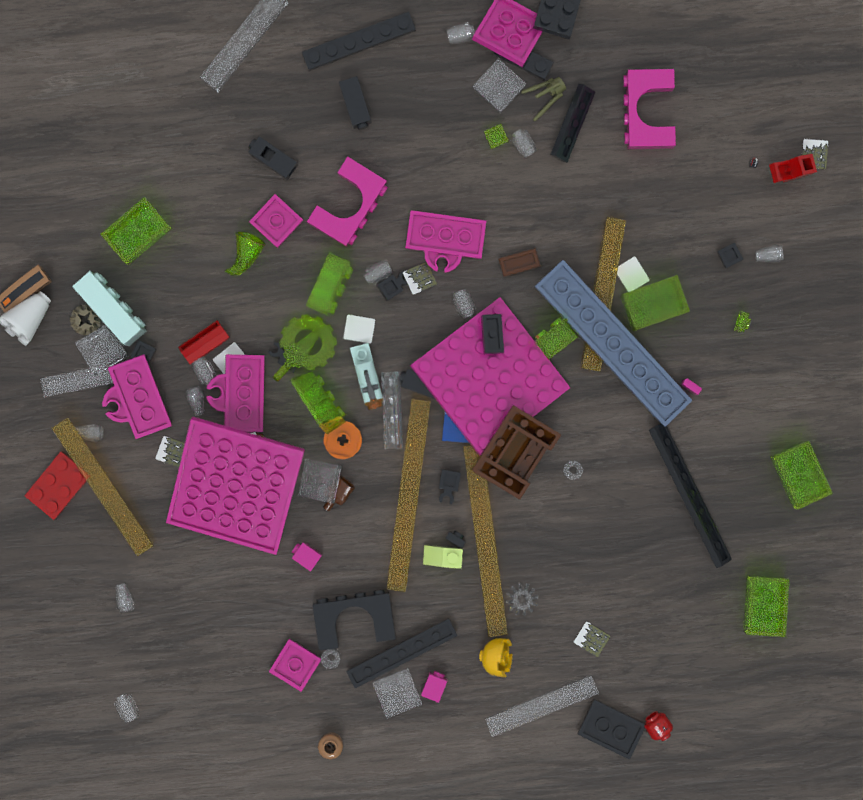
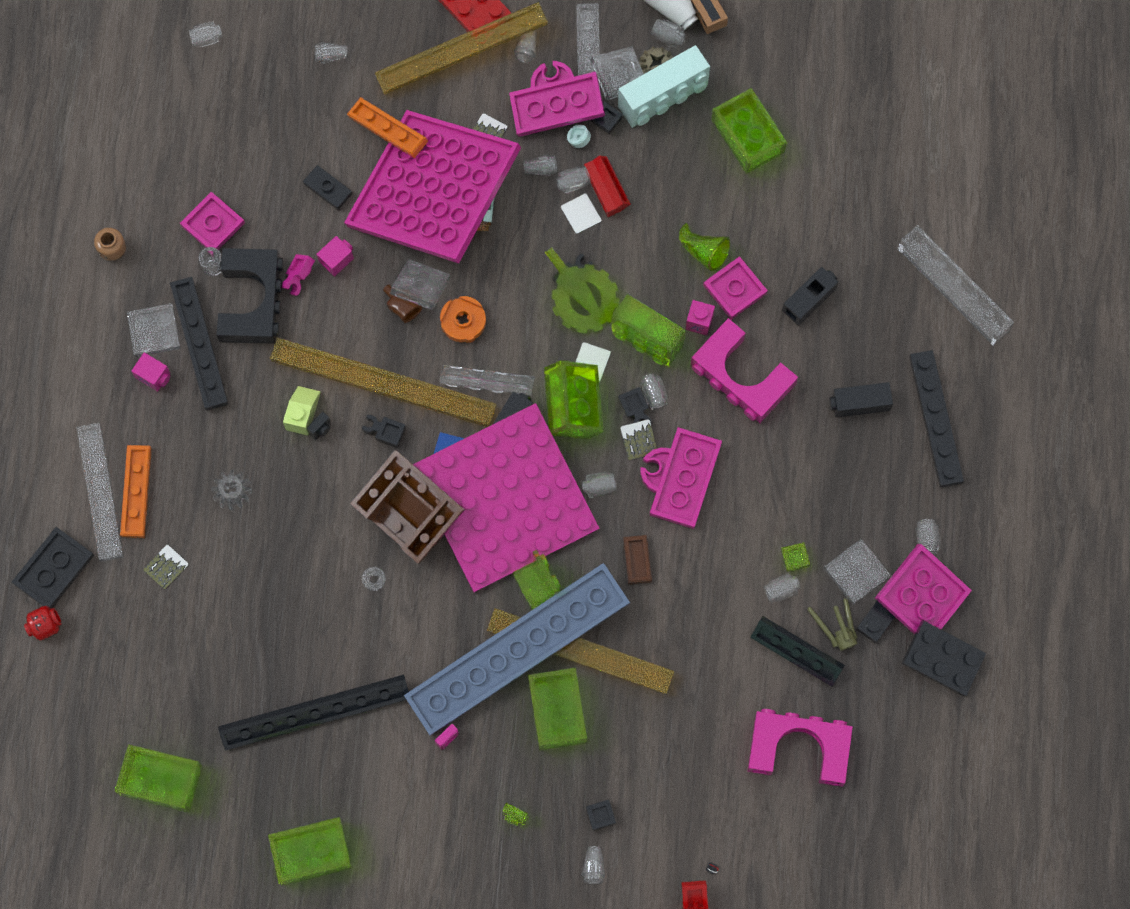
camera: 100 degrees right, 15 degrees down
(56, 314) = (668, 32): none -> clear brick
(163, 373) = (578, 136): none -> light aqua tile
(186, 535) = (387, 127): none -> orange tile
(240, 392) = (539, 214): dark pink plate -> none
(246, 575) = (327, 187): none -> black plate
(308, 245) = (700, 317): none -> dark pink brick
(319, 401) = (512, 294): clear neon green slope -> none
(323, 584) = (297, 271): none -> dark pink plate
(367, 376) = (529, 357): light aqua plate -> none
(400, 335) = (573, 399): none -> clear neon green brick
(485, 547) = (294, 459): clear yellow plate -> none
(492, 334) = (555, 505): black plate -> none
(496, 657) = (168, 449): yellow cylinder -> none
(536, 677) = (135, 491): none -> orange tile
(632, 274) = (599, 693): white sticker -> none

